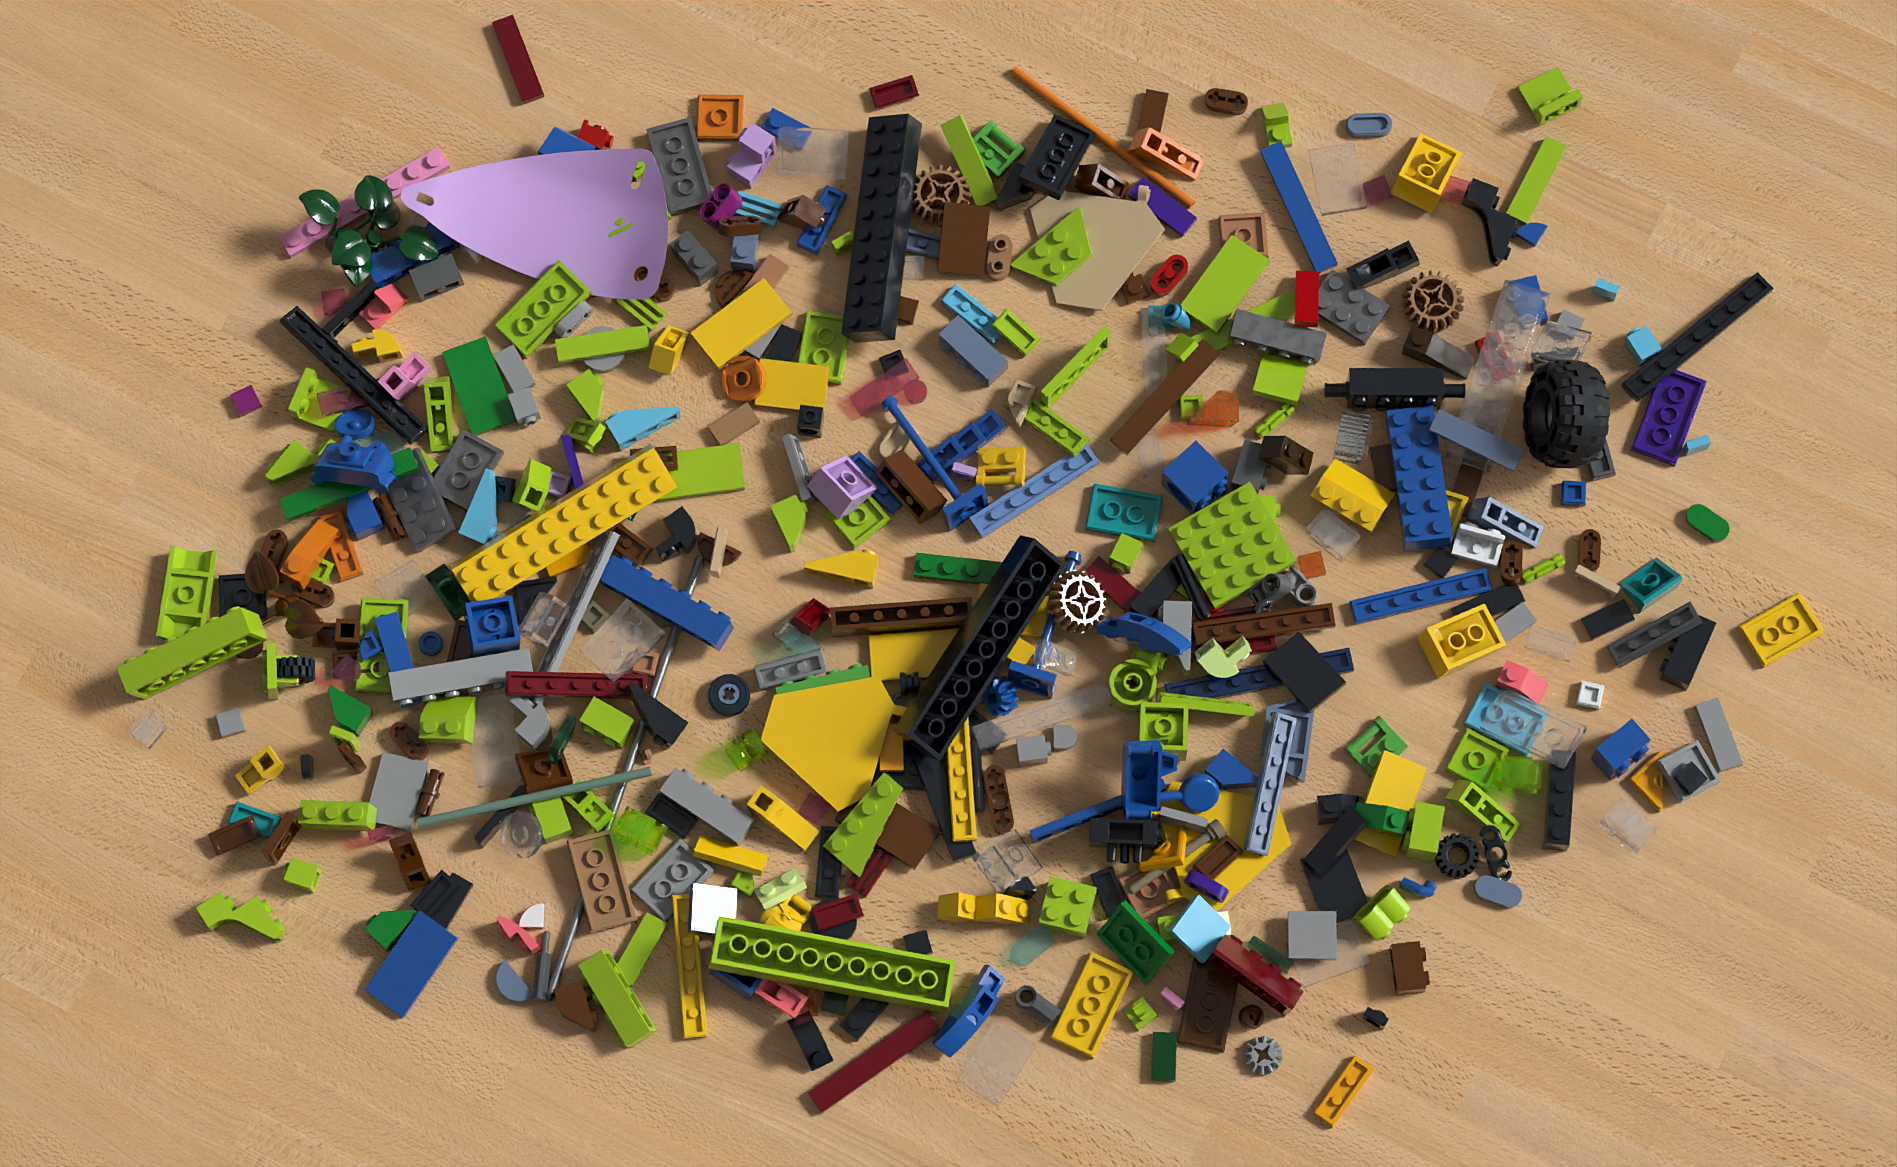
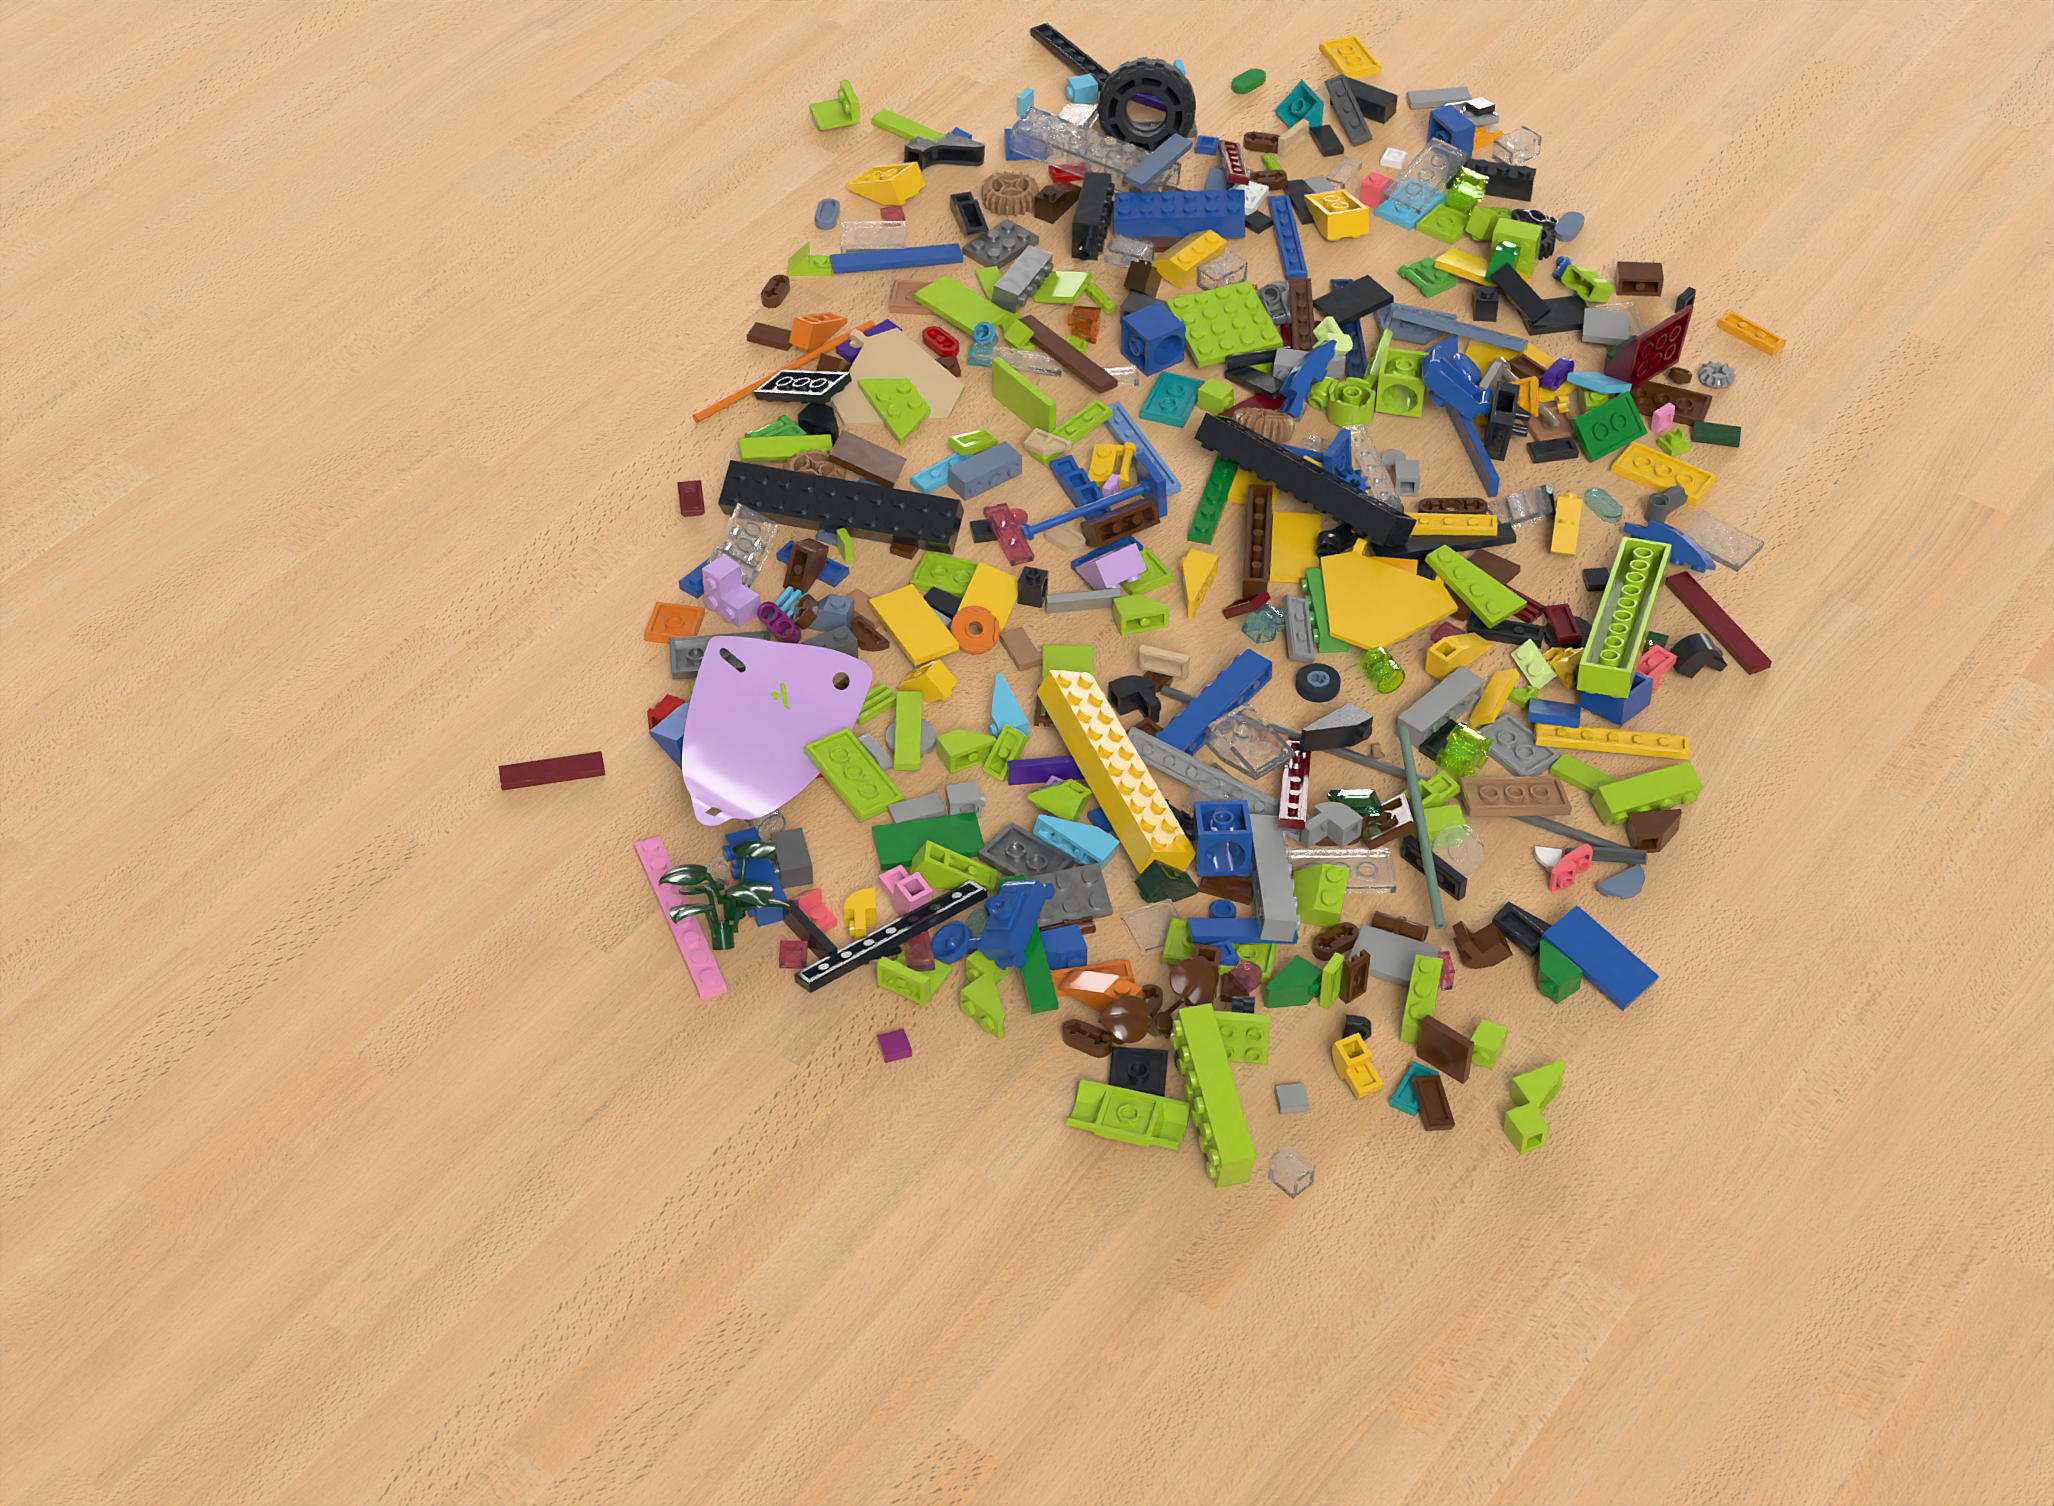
camera: 85 degrees left, 30 degrees down
(607, 723) = (1337, 771): lime brick -> none
(863, 1017) = (1670, 624): black plate -> none
(999, 256) = (898, 446): medium nougat plate -> none
(1067, 907) = (1569, 469): lime brick -> none
(1306, 299) = (991, 255): red tile -> none
(1513, 521) = (1233, 162): none -> dark red tile

